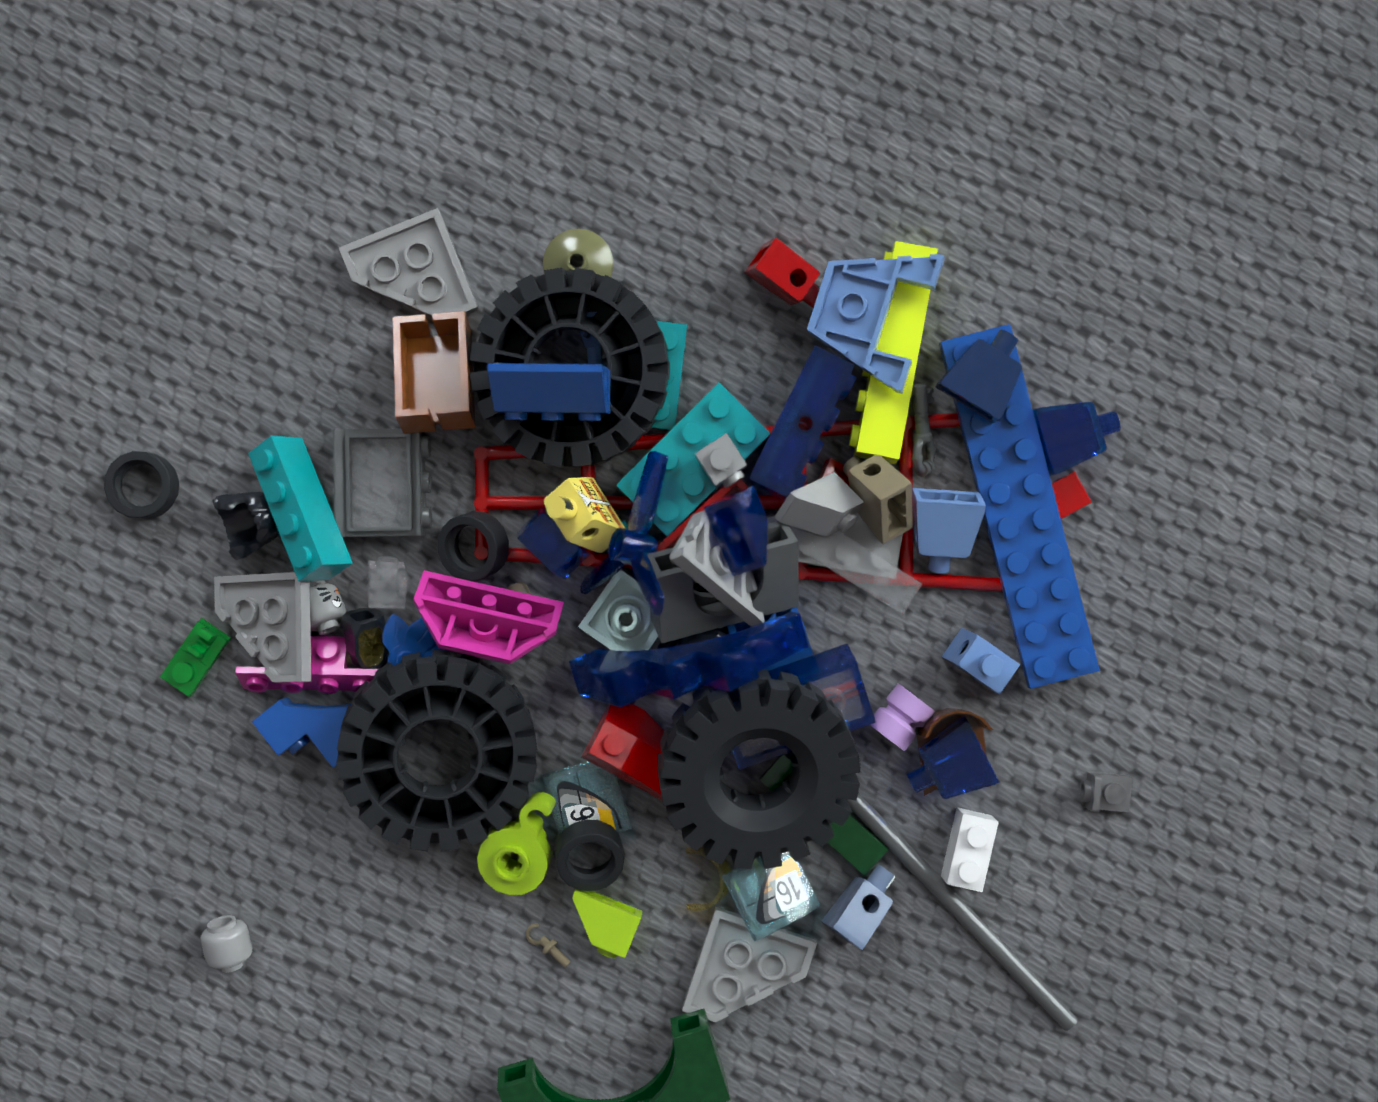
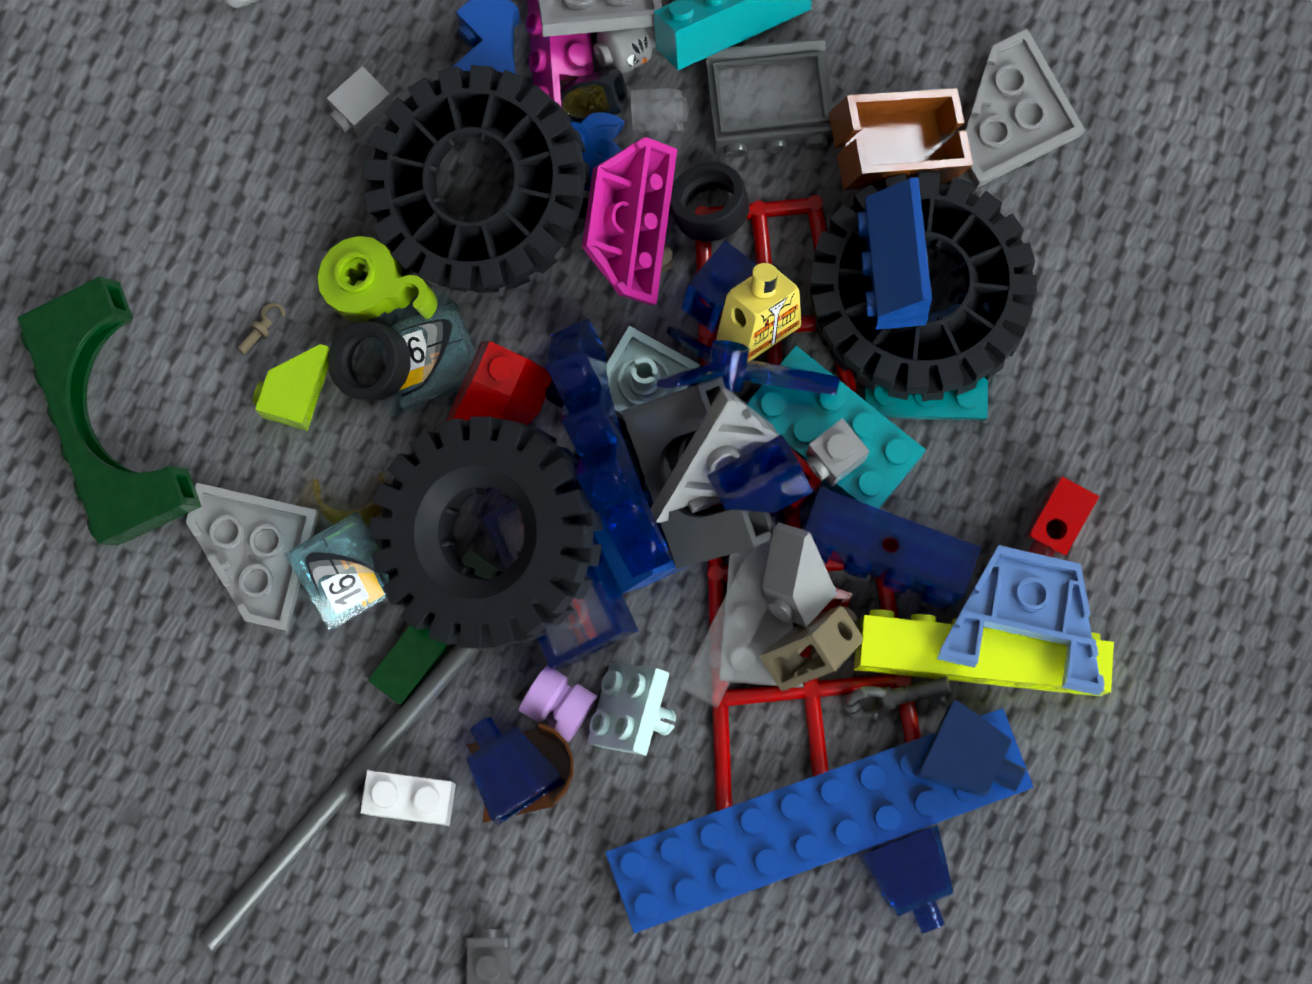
camera: 85 degrees right, 10 degrees down
(352, 847) = (358, 102): none -> light grey brick
(581, 243) = (1063, 302): olive dish -> none
(850, 918) = (316, 663): sand blue torso -> none
(914, 657) = (630, 709): none -> light aqua plate
(945, 524) = (788, 731): medium blue torso -> none
(981, 660) = (630, 794): medium blue torso -> none
(1070, 494) = (838, 881): red tile -> none

